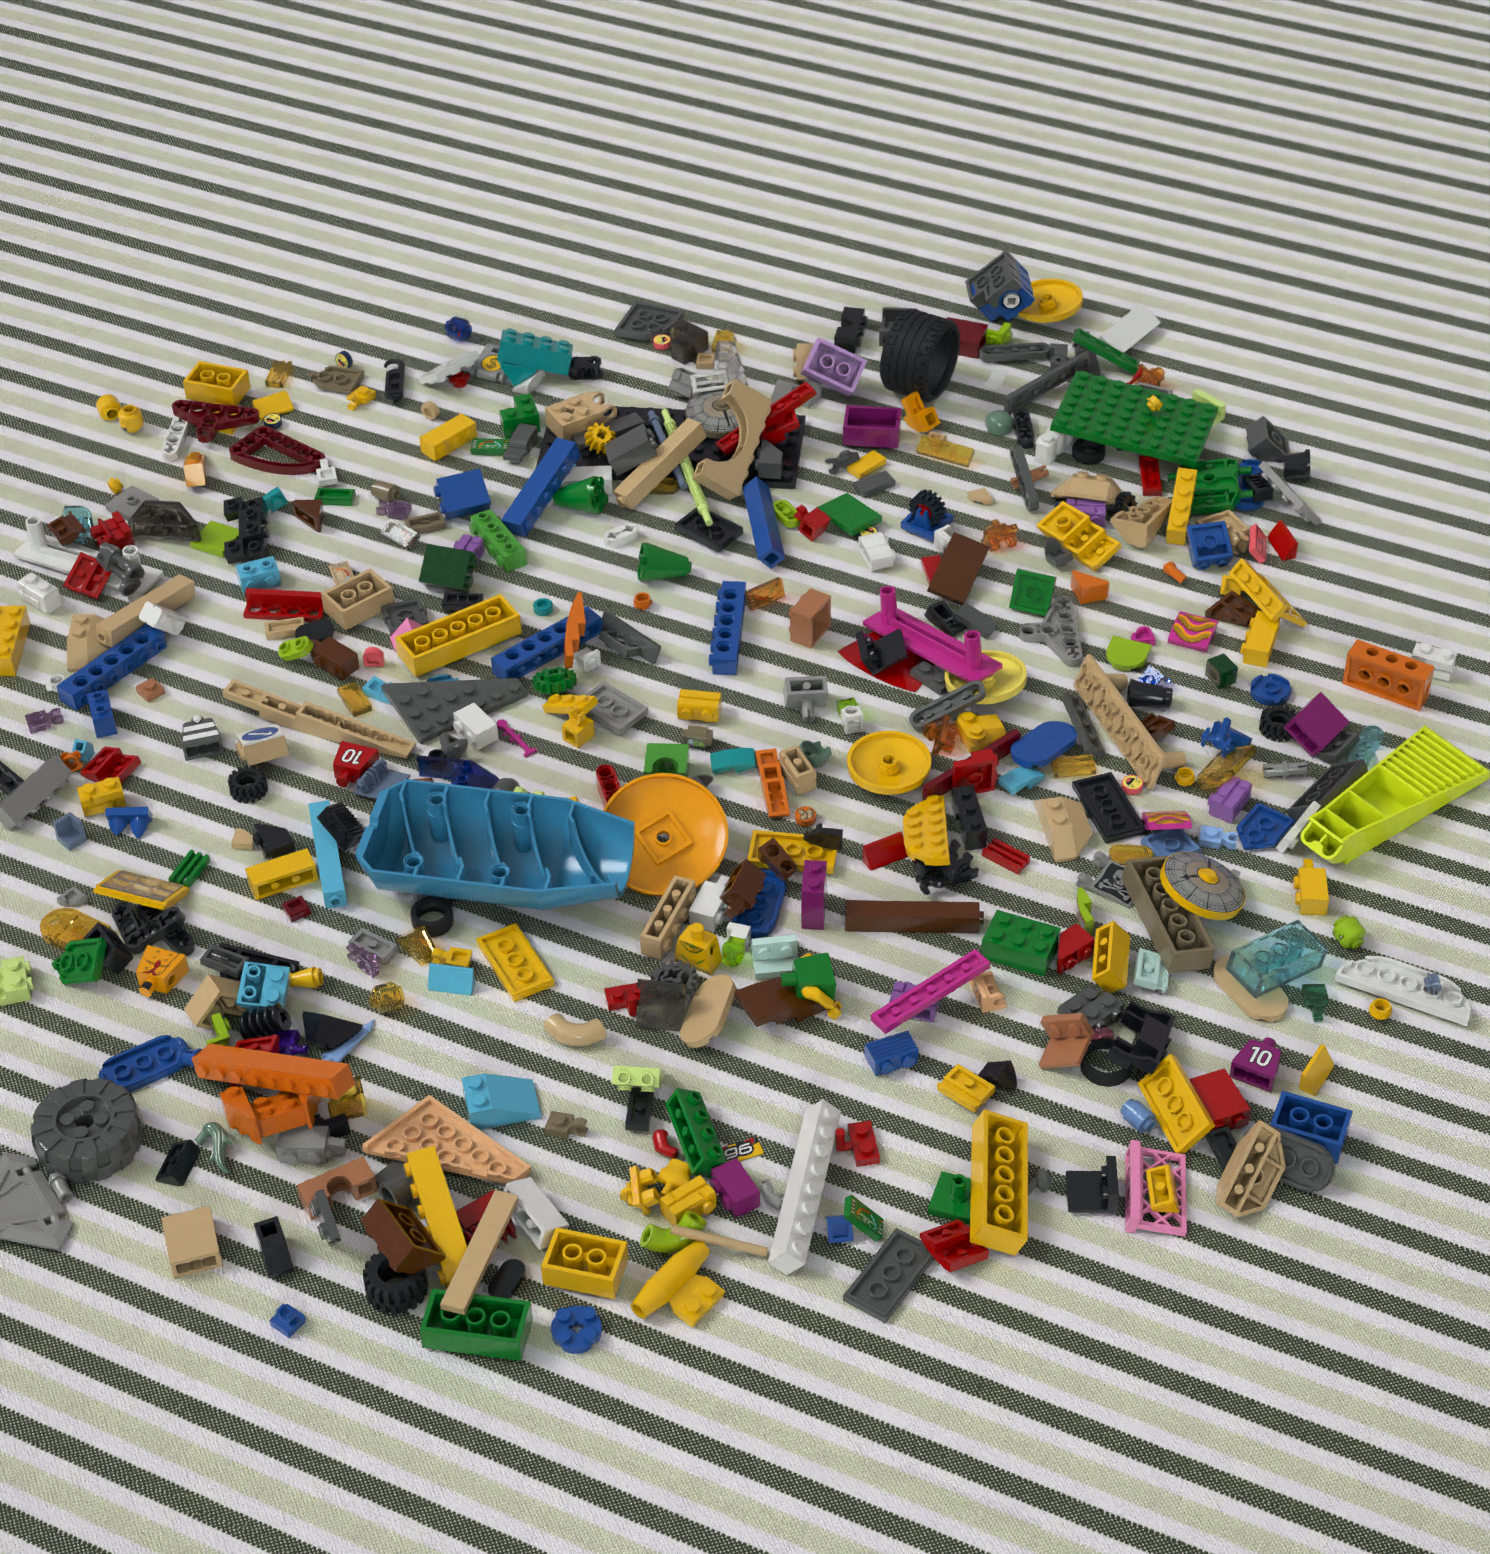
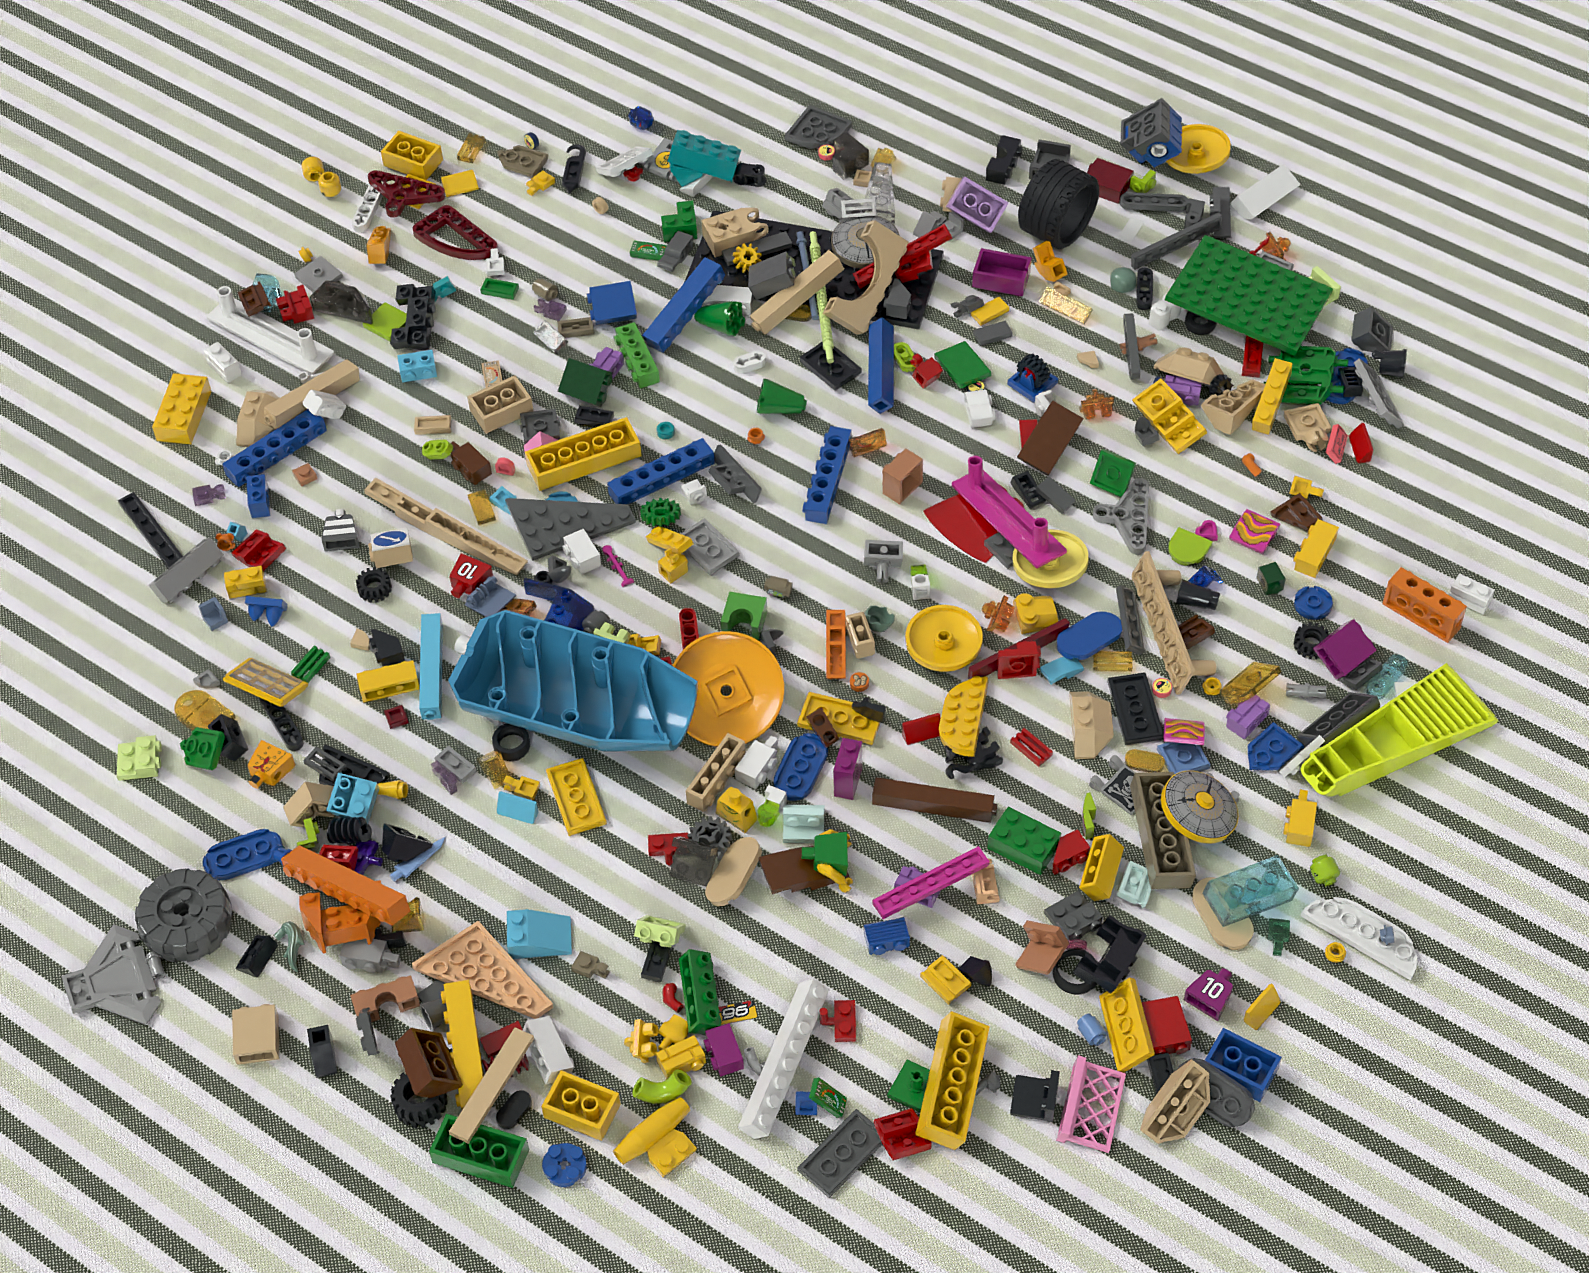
camera: 10 degrees right, 10 degrees up
(87, 577) = (268, 349): red slope -> none
(110, 559) = (287, 340): dark grey piece -> none
(138, 932) = (257, 728): black beam -> none
(272, 420) = (456, 199): tile -> none
(285, 601) = (437, 397): red fence -> none
(287, 1320) = (324, 1120): blue tile -> none
(309, 512) = (474, 304): reddish brown slope -> none
(317, 630) = (457, 432): black tile -> none
(341, 825) = (446, 642): black brick -> none
(386, 997) = (458, 819): clear yellow head -> none
(448, 437) = (611, 237): yellow brick -> none
(574, 629) = (686, 461): orange slope -> none
(574, 1034) = (613, 877): tan cylinder -> none
(699, 705) = (785, 555): yellow brick -> none
(719, 1240) = (699, 1100): tan bar -> none
(737, 758) = (805, 614): teal slope -> none
(742, 888) = (785, 754): reddish brown hinge -> none
(883, 652) = (960, 520): black bracket -> none
(948, 705) = (1009, 585): dark grey plate -> none
(968, 811) = (1005, 704): black arch -> none
(1088, 588) = (1167, 473): orange slope -> none
(1106, 351) = (1239, 213): green tile -> none
(1154, 403) = (1268, 283): yellow plate -> none
(1162, 1189) = (1096, 1107): yellow slope -> none
(1209, 545) = (1289, 441): blue plate -> none
(1214, 837) = (1225, 752): light blue plate -> none
(1225, 737) = (1256, 652): blue piece -> none
(1264, 593) = (1330, 503): yellow fence -> none

